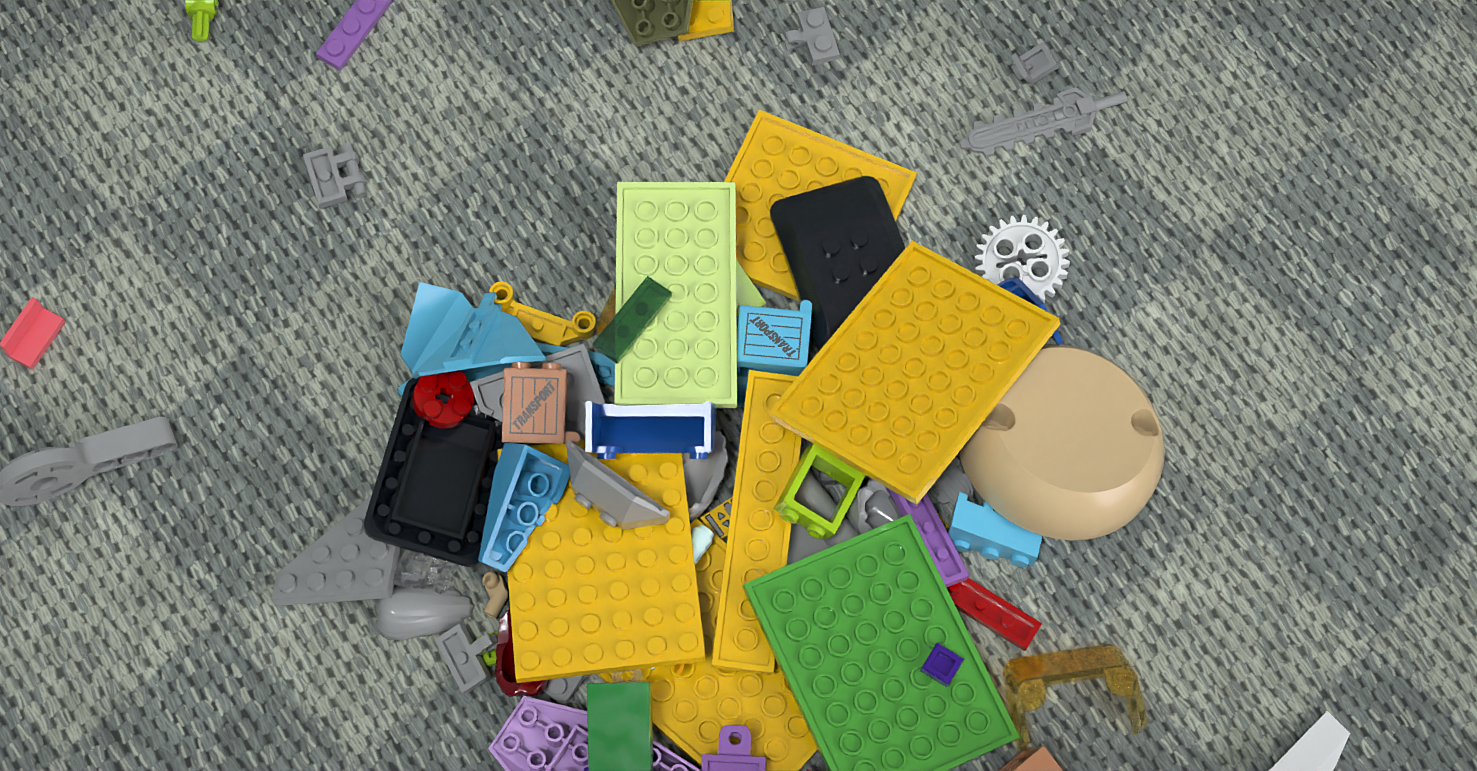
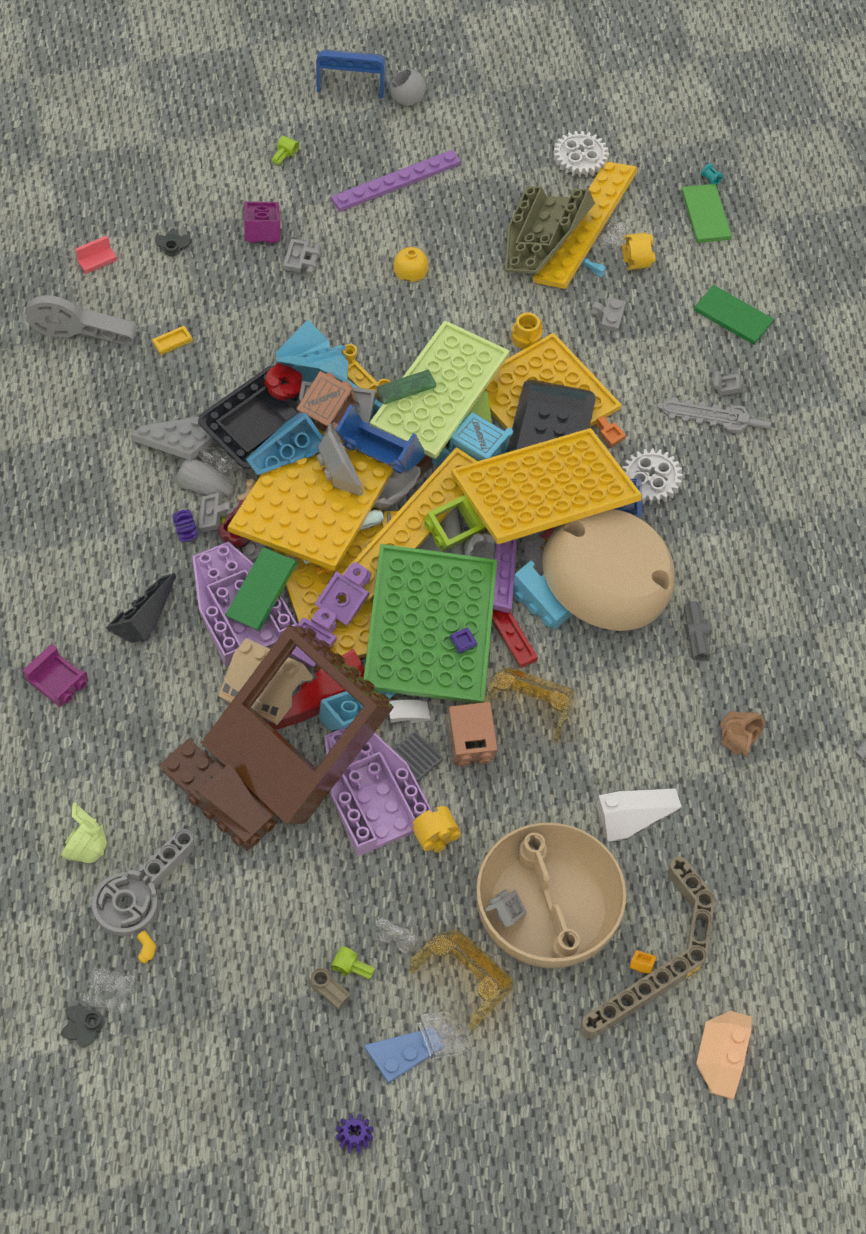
camera: 30 degrees right, 10 degrees down
(128, 246) = (172, 240): none -> pearl dark grey plate
(231, 410) = (172, 340): none -> yellow tile
(241, 147) = (261, 222): none -> magenta slope
(443, 702) = (185, 525): none -> dark purple gear
(496, 105) = (411, 264): none -> yellow cylinder
(722, 141) = (526, 330): none -> yellow piece
(738, 670) = (350, 585): none -> medium lavender plate
(928, 224) = (610, 433): none -> orange plate
(1217, 462) = (697, 631): none -> dark grey piece
(1361, 583) = (741, 730): none -> medium nougat head

